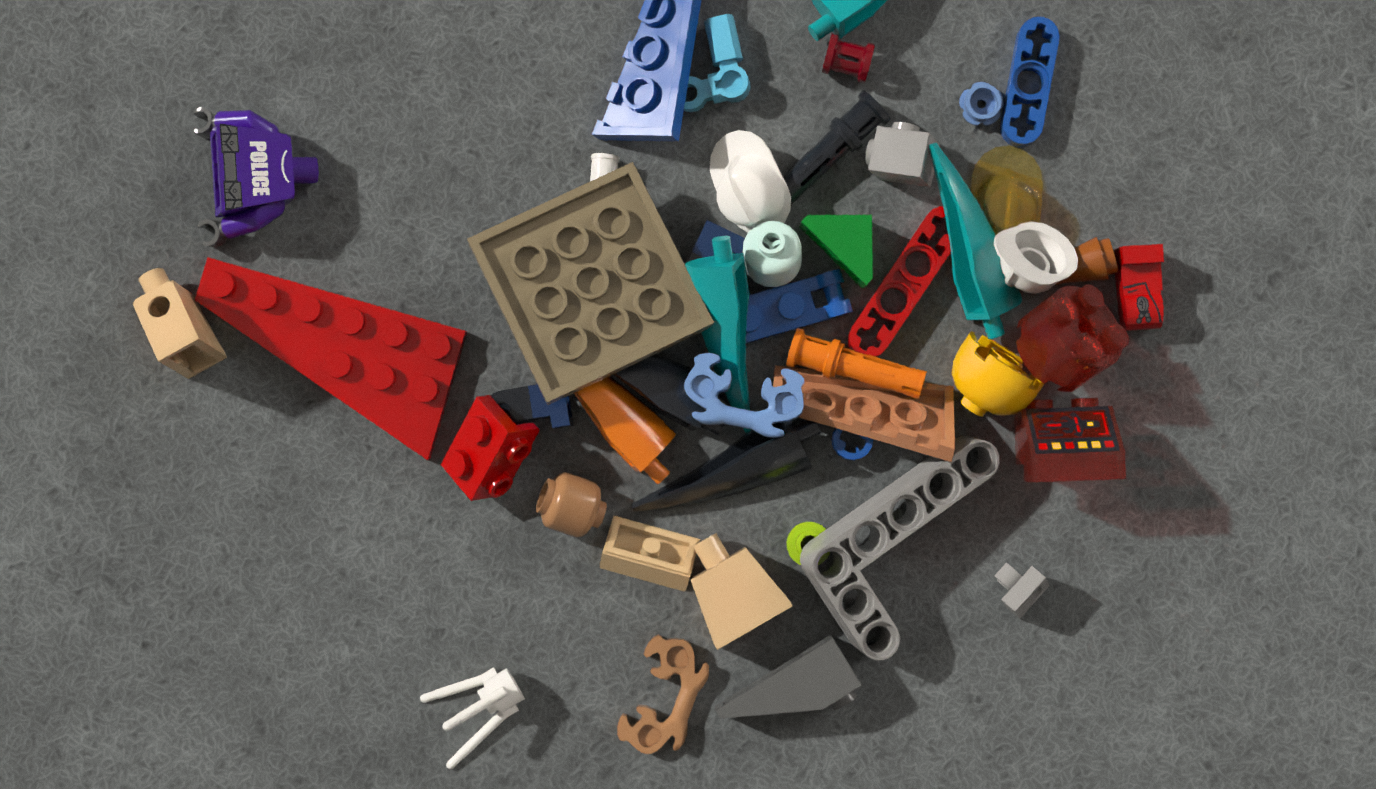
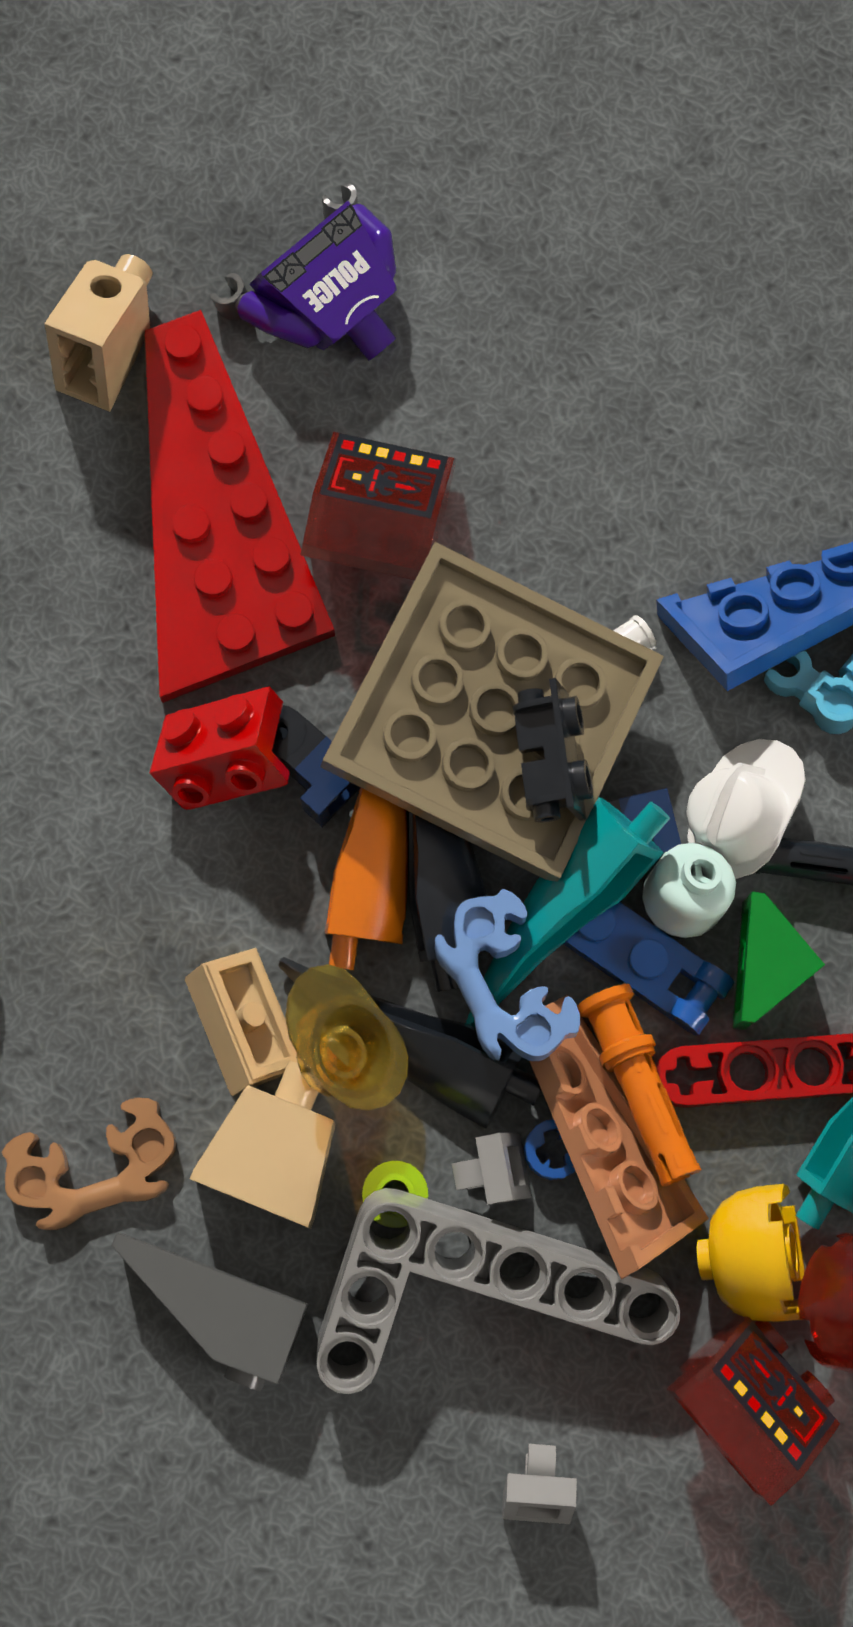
camera: 45 degrees right, 10 degrees down
(414, 249) = (377, 506): none -> clear red piece
(571, 504) = (230, 888): medium nougat head -> none
(659, 278) = (551, 726): none -> black hinge
(709, 508) = (344, 1040): none -> clear yellow piece
(839, 479) = (498, 1169): none -> light grey tile

